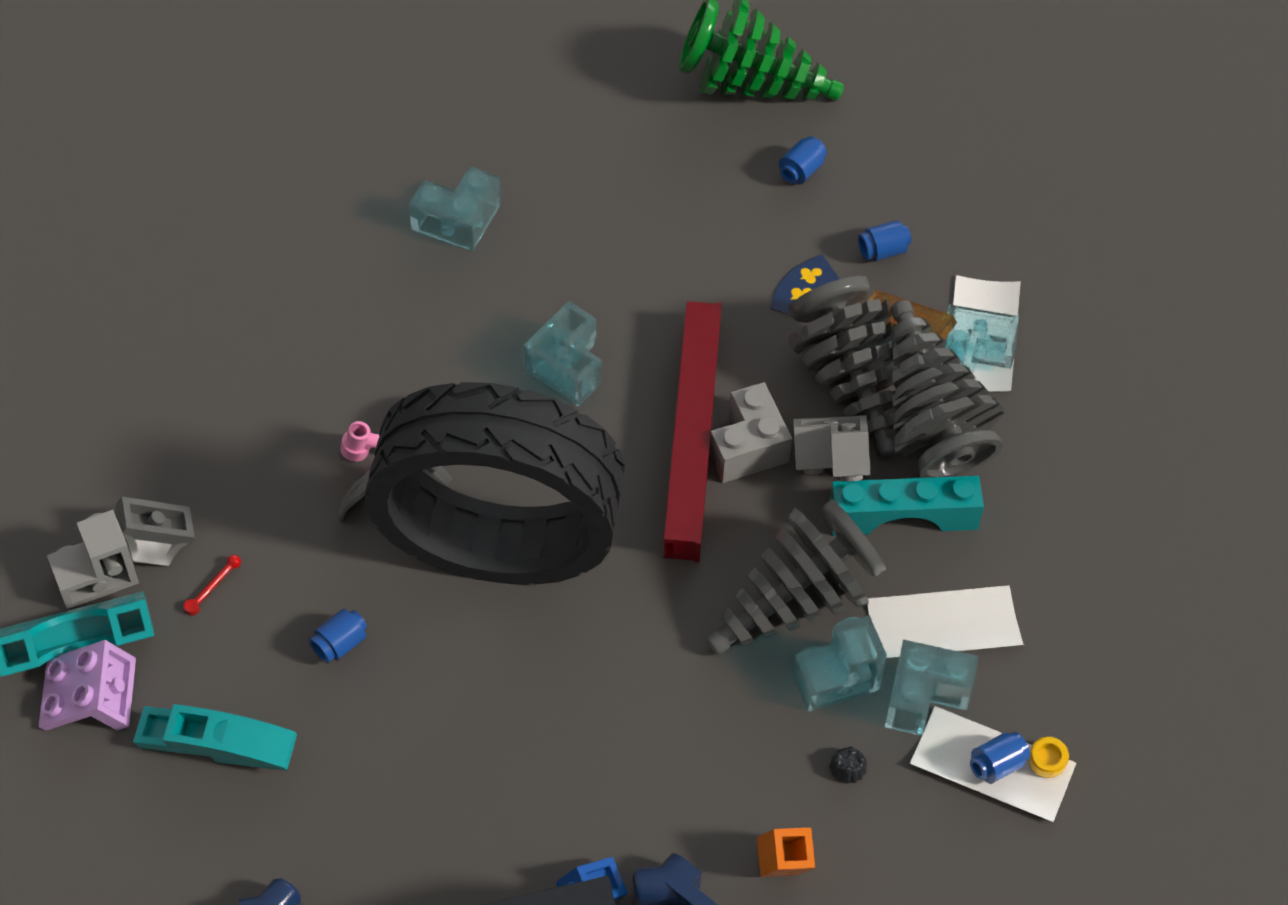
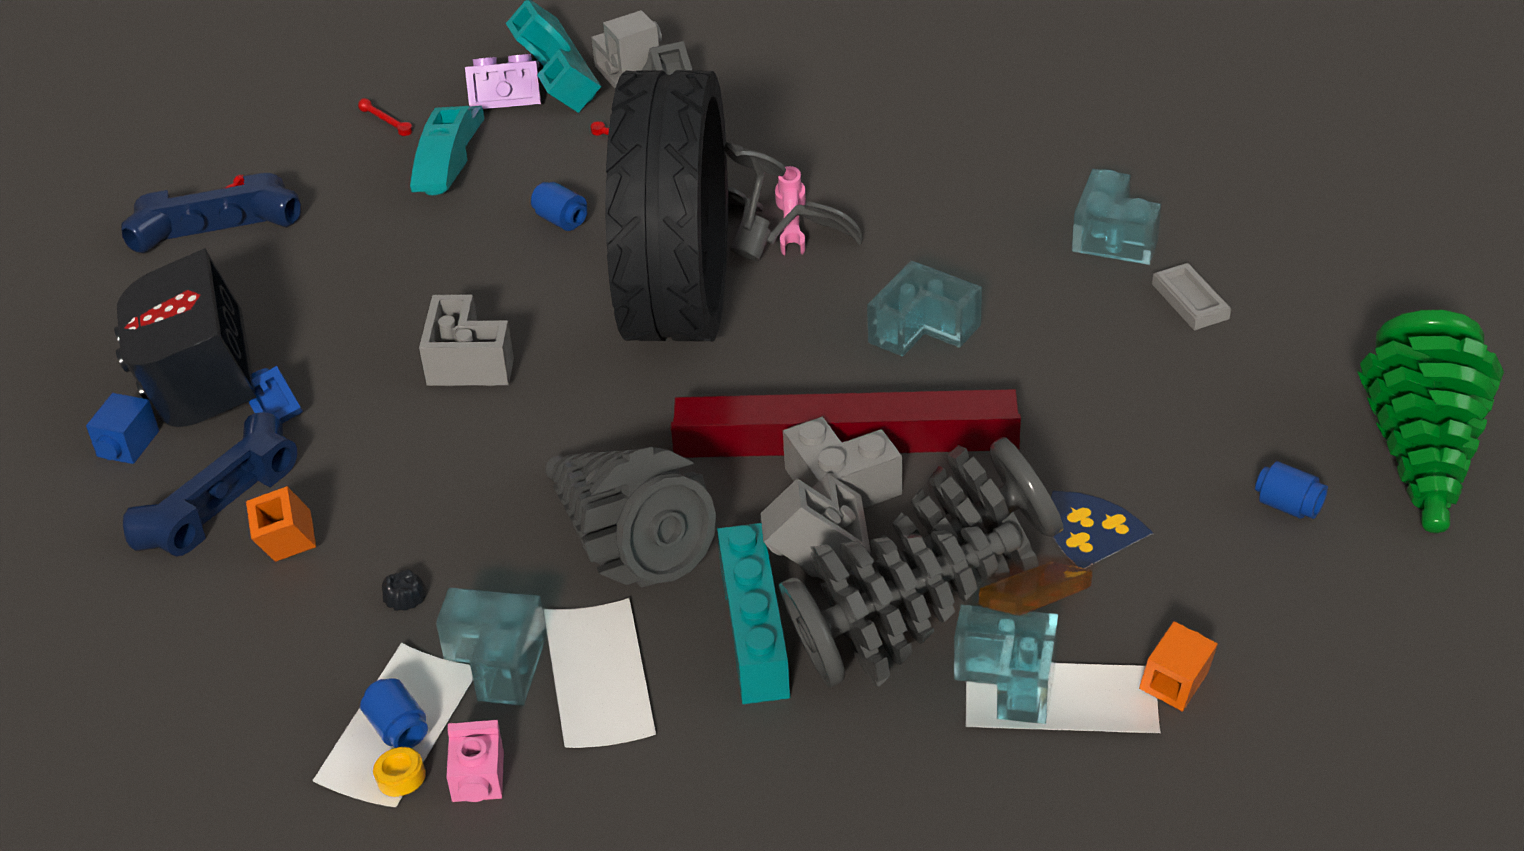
camera: 90 degrees right, 15 degrees down
(142, 794) = (404, 128): none -> red hinge
(554, 720) = (460, 348): none -> light grey brick
(555, 180) = (1191, 296): none -> light grey tile
(844, 668) = (519, 556): clear light blue brick -> none
(884, 241) = (1179, 576): blue brick -> none
(972, 255) = (1178, 666): none -> orange brick
(1047, 701) = (475, 761): none -> bright pink brick

